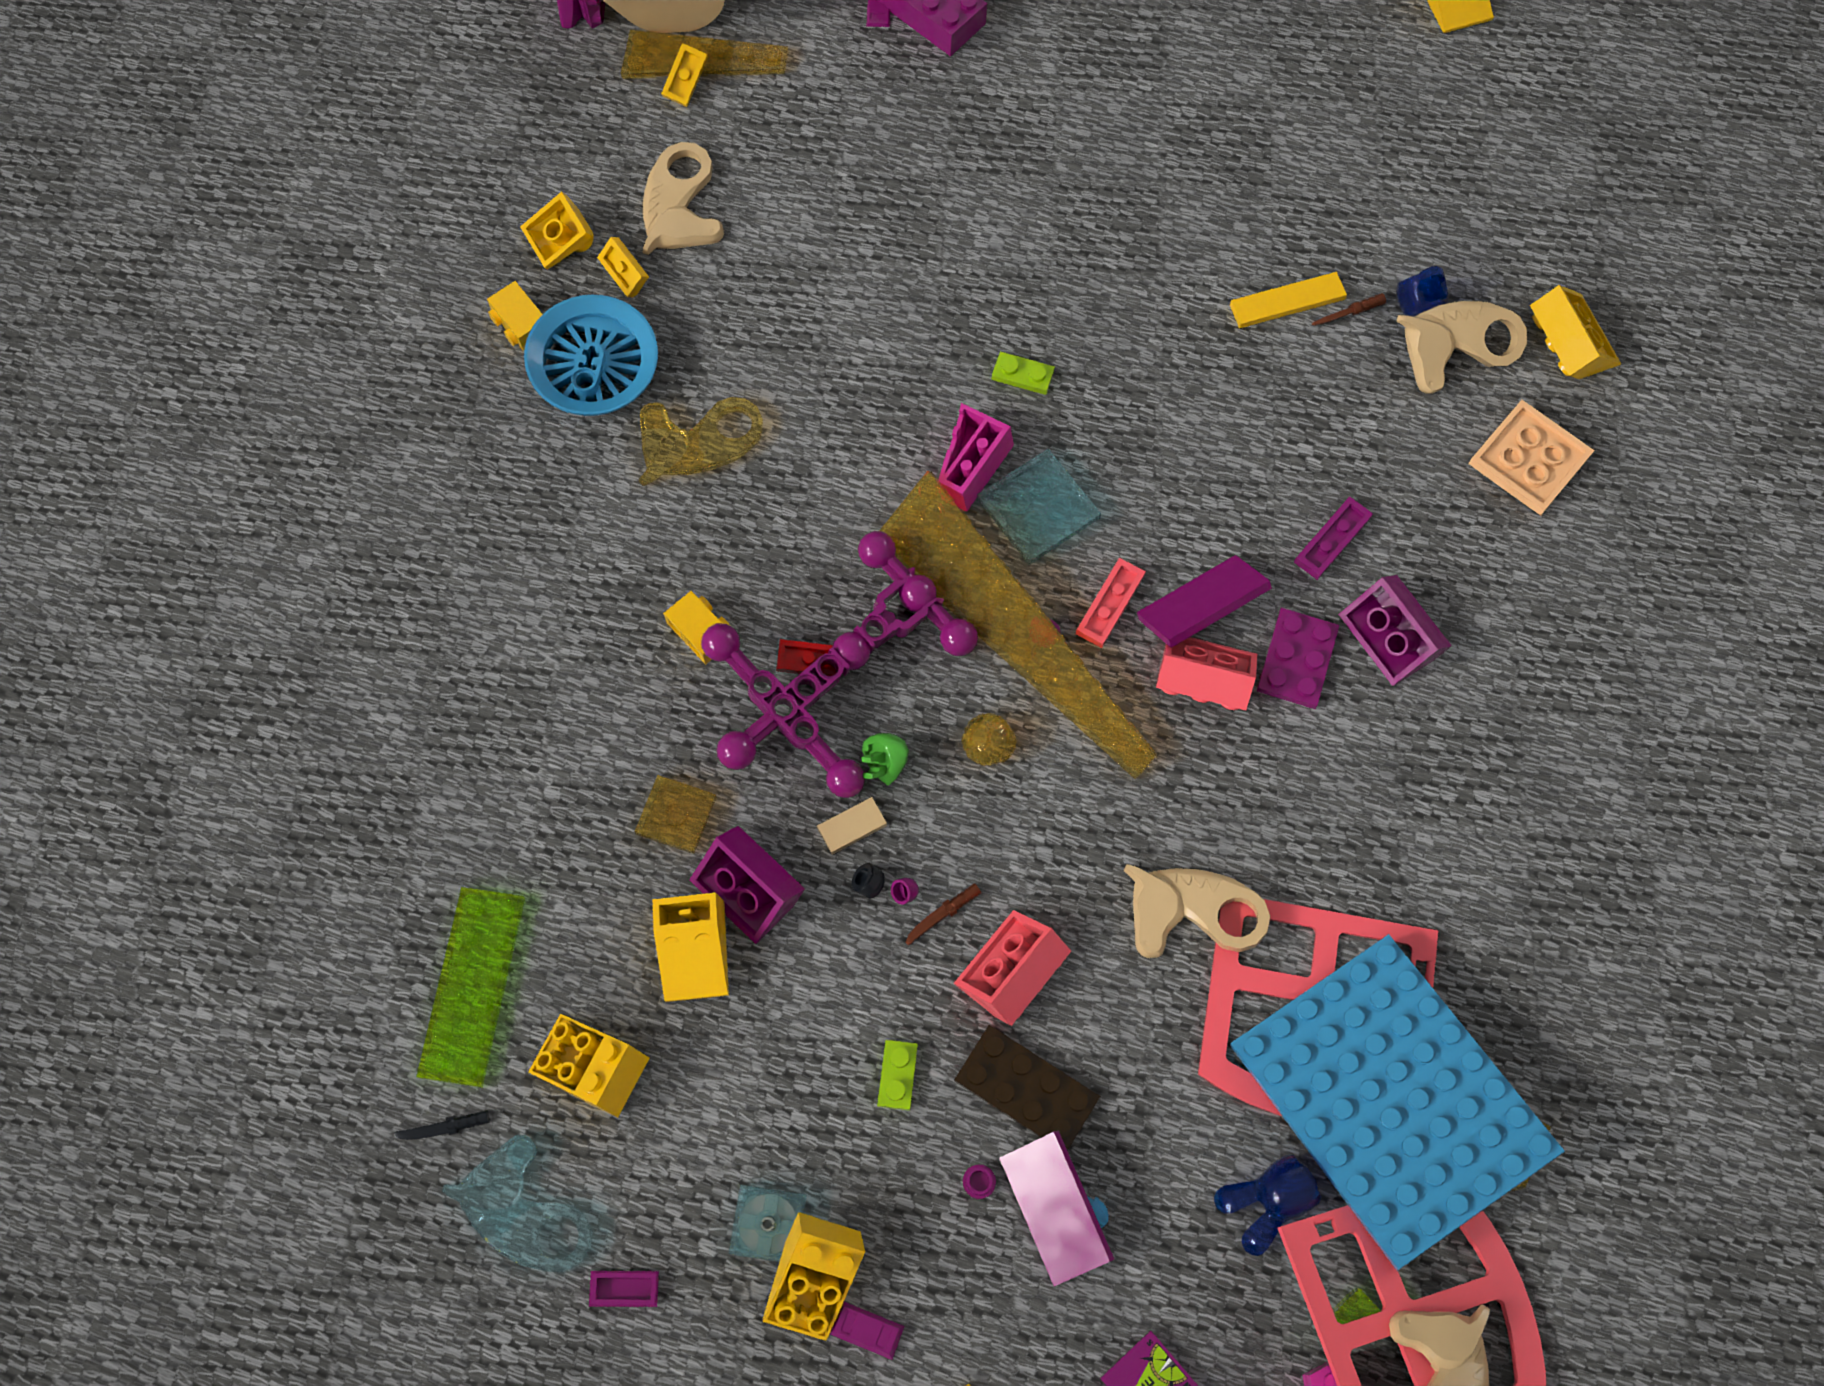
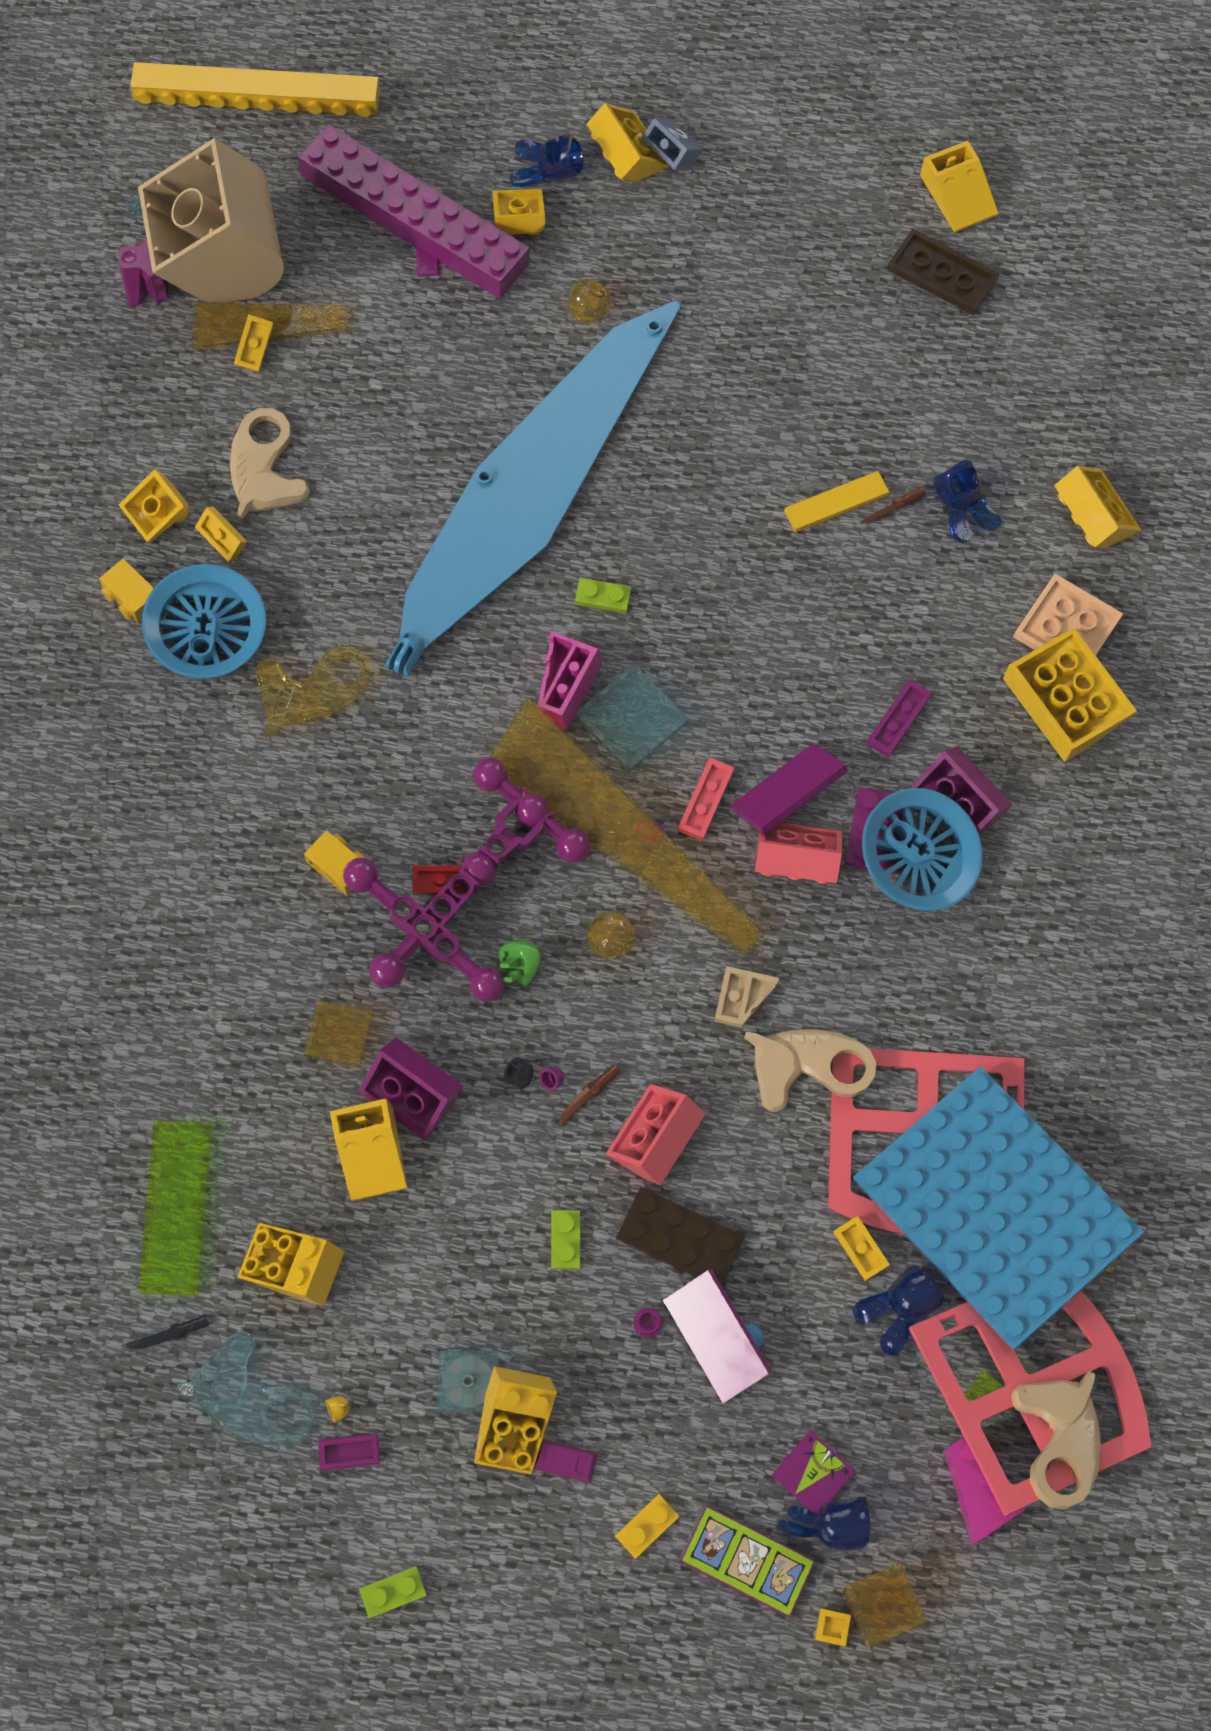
camera: 10 degrees left, 0 degrees up
(618, 1236) = (338, 1407): none -> yellow hinge
(852, 825) = (498, 1026): tan tile -> none
(955, 251) = (529, 486): none -> dark azure wing
(1043, 65) = (588, 300): none -> clear yellow hair
(1127, 823) = (742, 995): none -> tan wing
(1231, 1126) = (861, 1248): none -> yellow plate
(1342, 685) = (960, 870): none -> dark azure piece
(1428, 71) = (943, 271): none -> dark brown plate
(1458, 326) = (987, 512): tan animal -> none
(1526, 531) = (1068, 694): none -> yellow slope

